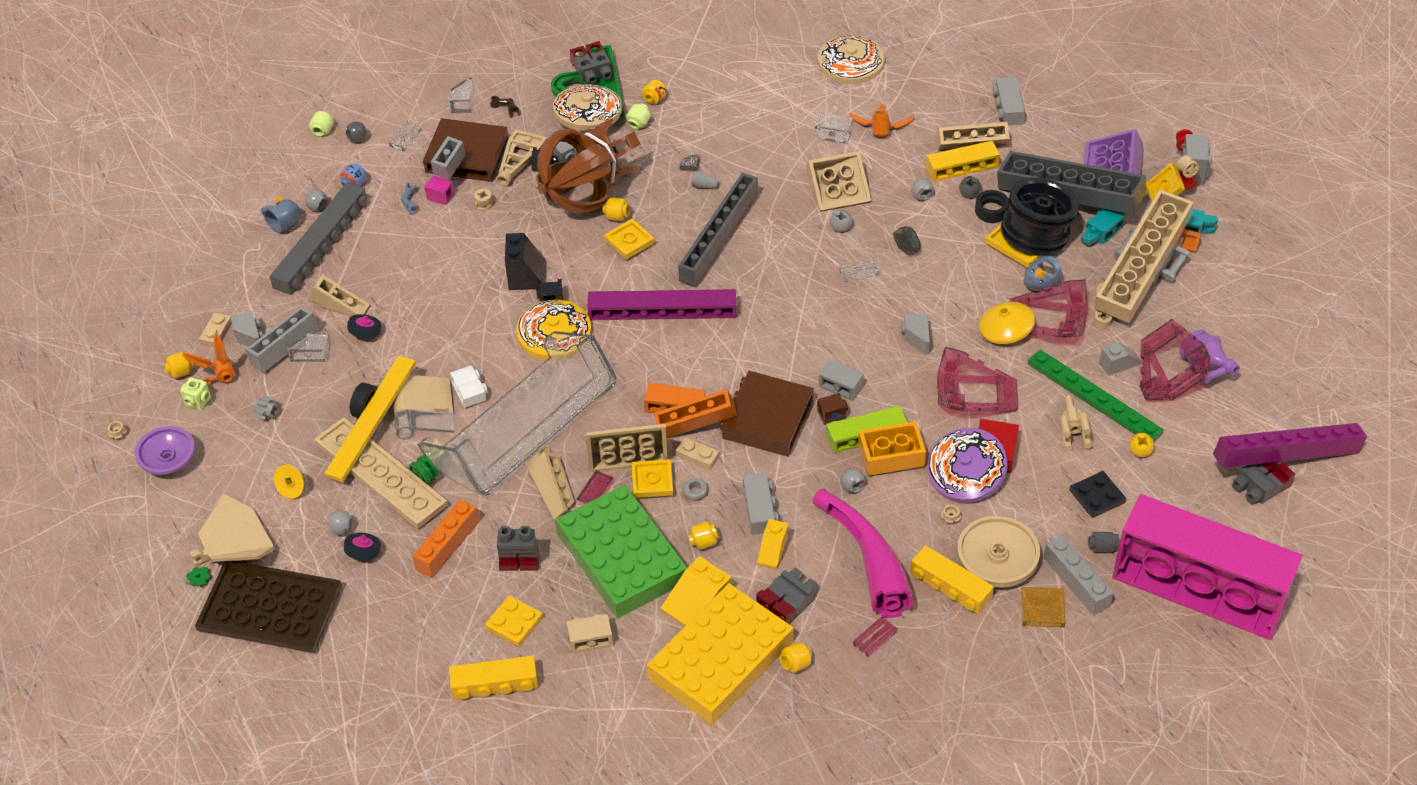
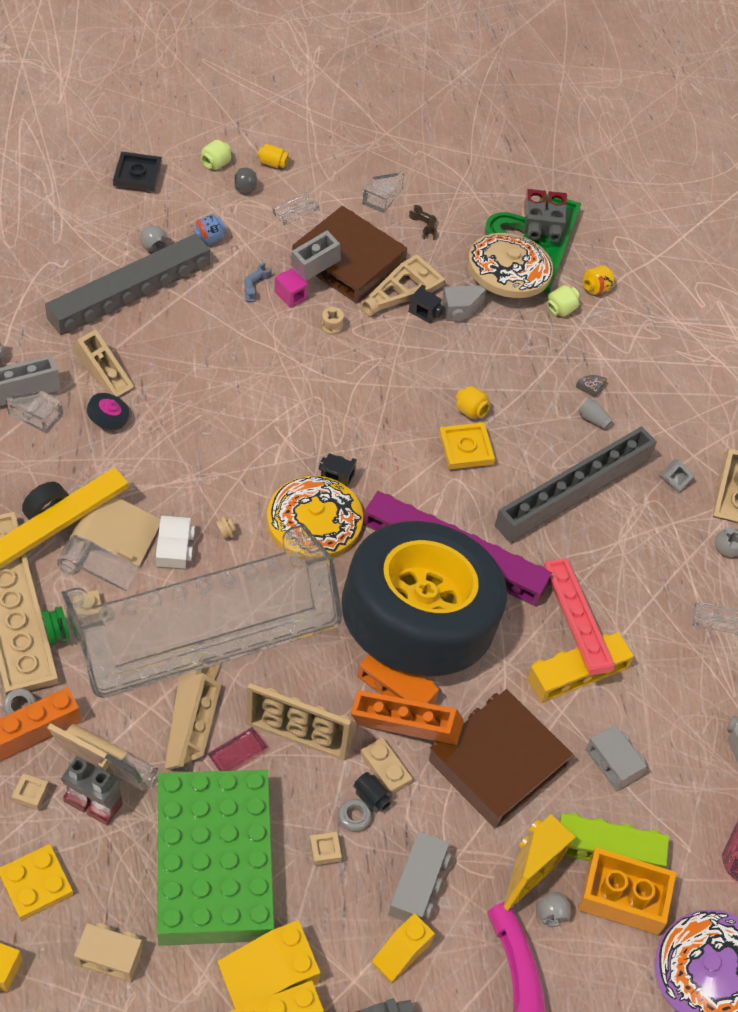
camera: 20 degrees right, 5 degrees up
(270, 159) = (137, 171): none -> black plate
(281, 216) = (107, 240): sand blue piece -> none
(364, 106) = (273, 156): none -> yellow brick
(428, 520) = (11, 696): none -> light grey piece
(474, 572) = (30, 791): none -> tan plate
(487, 525) = (106, 756): none -> door
(497, 361) = (226, 527): none -> tan plate
(523, 263) = (325, 419): black slope -> none
(594, 163) = (472, 337): dark orange piece -> none
(652, 478) = (310, 774): yellow plate -> none
(663, 338) = (423, 631): none -> black wheel
(688, 514) = (325, 848): none -> tan plate
(699, 469) = (373, 792): none -> black brick
(703, 535) = (326, 888): yellow head -> none
(770, 308) = (579, 617): none -> coral tile
(781, 195) = (677, 475): none -> light grey slope
(787, 338) = (568, 672): none -> yellow brick
(826, 453) = (538, 857): none -> yellow slope
(832, 408) = (583, 792): reddish brown brick -> none

